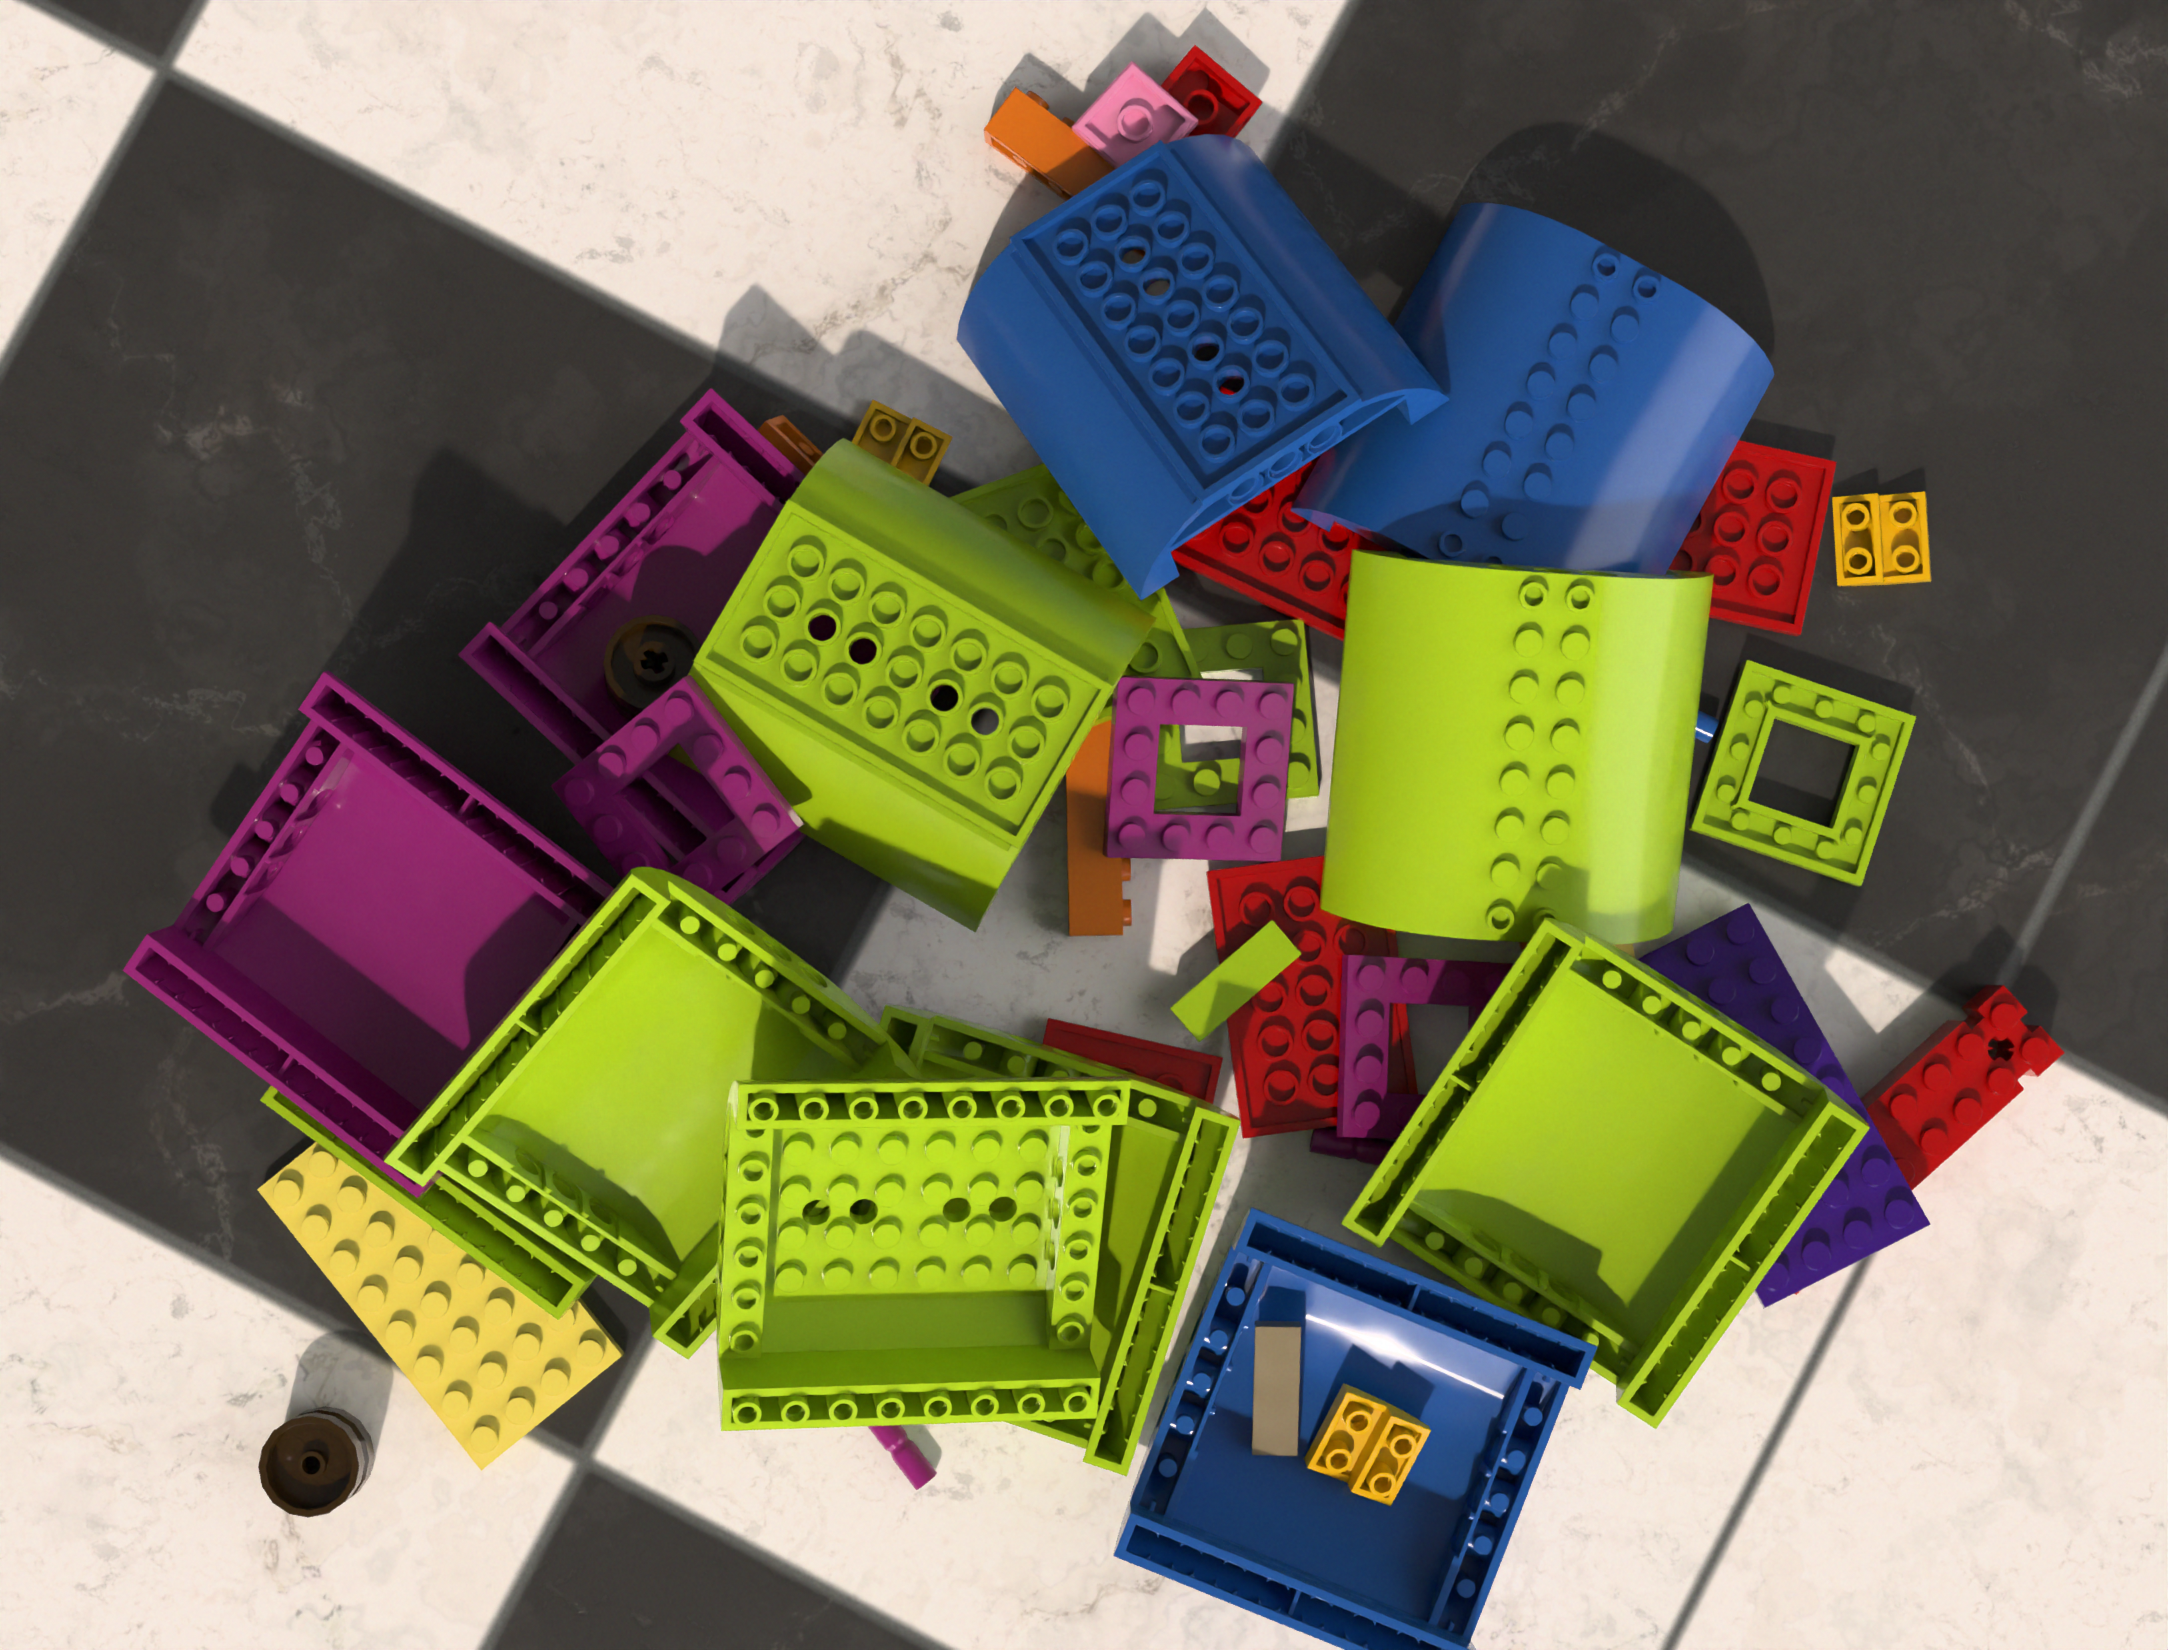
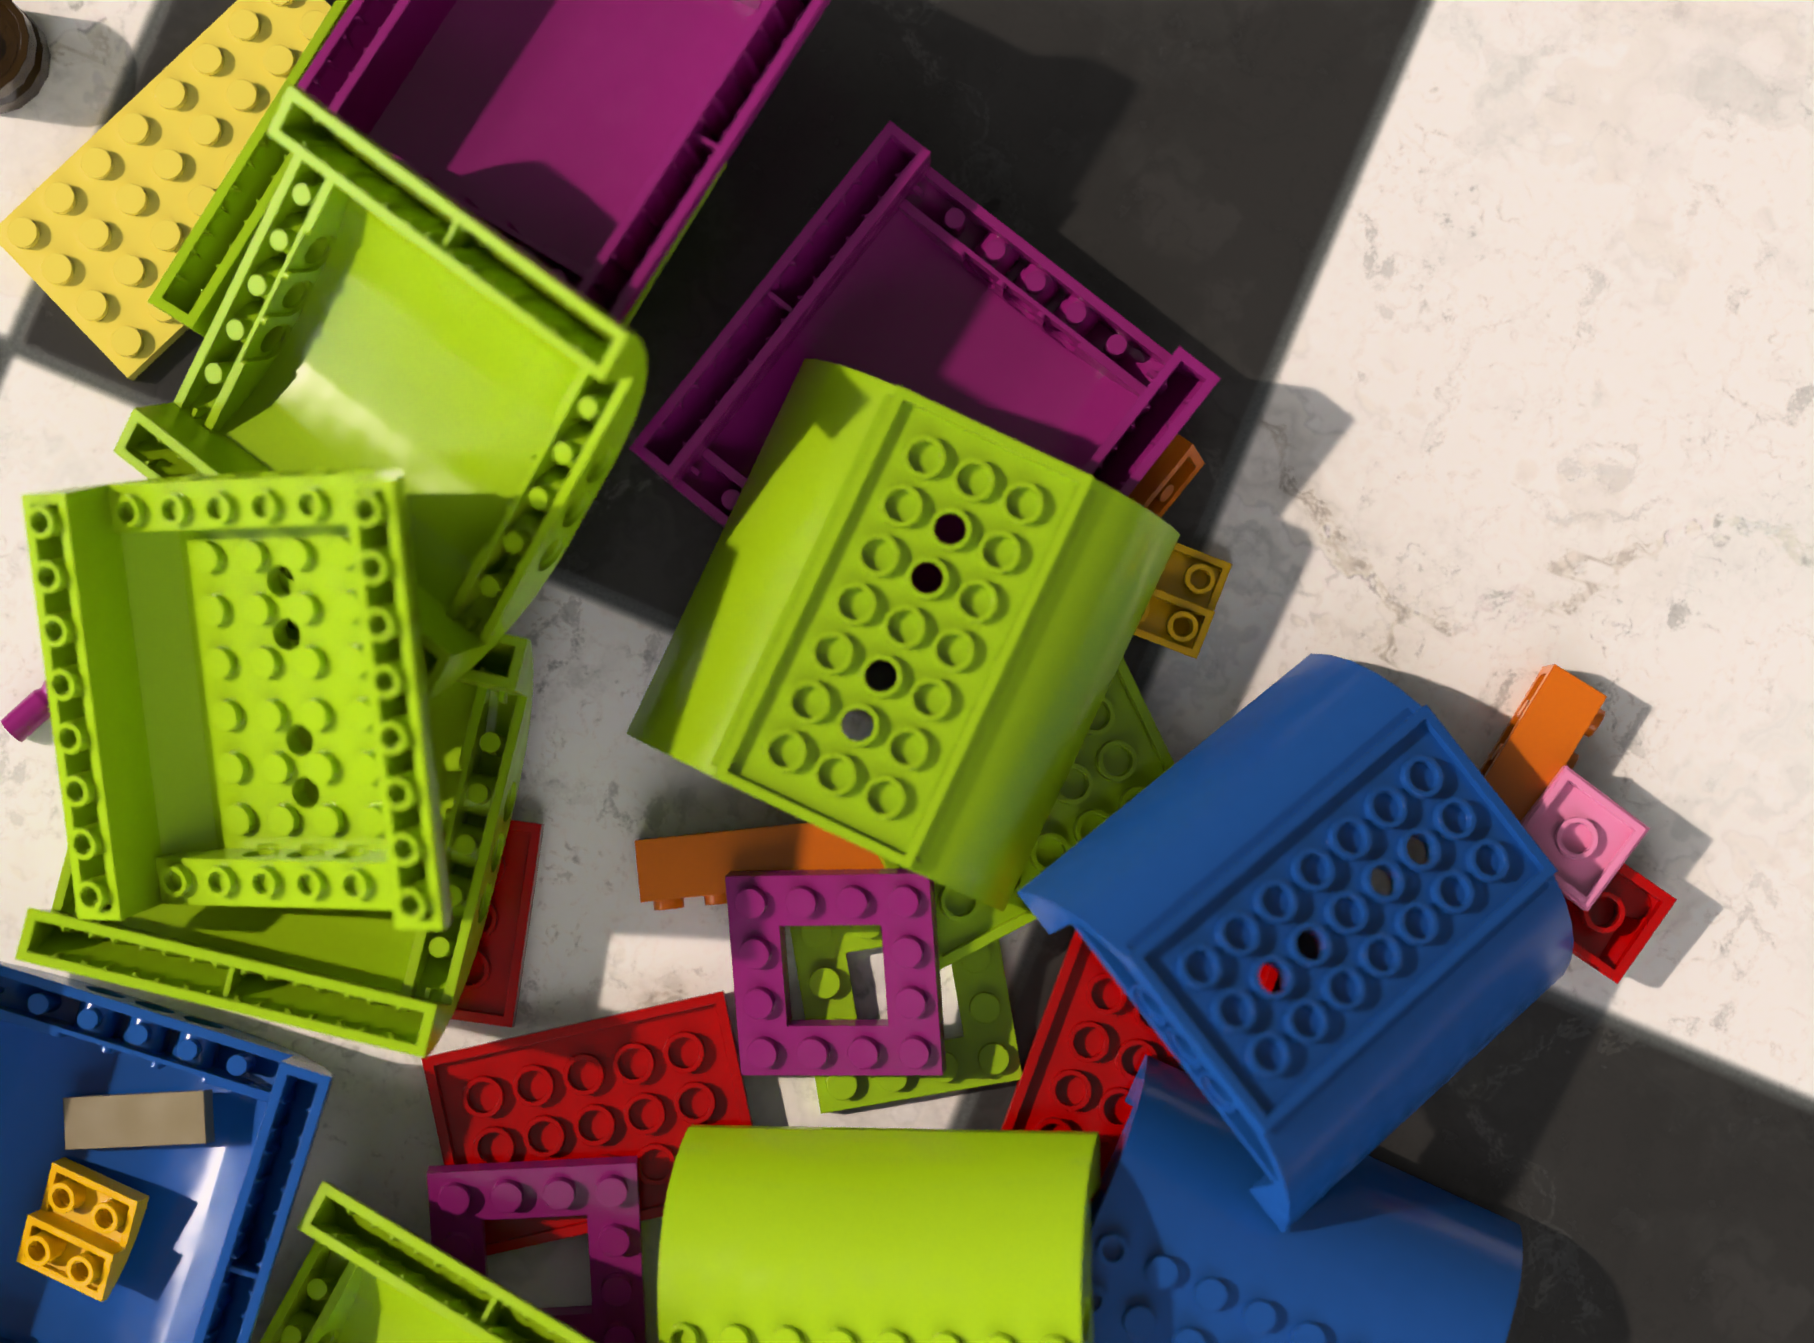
camera: 85 degrees right, 0 degrees up
(637, 649) = (918, 321): dark brown wheel -> none
(687, 719) = (831, 388): magenta plate -> none
(1235, 981) = (598, 1035): lime tile -> none
(1364, 1150) = (424, 1153): magenta piece -> none

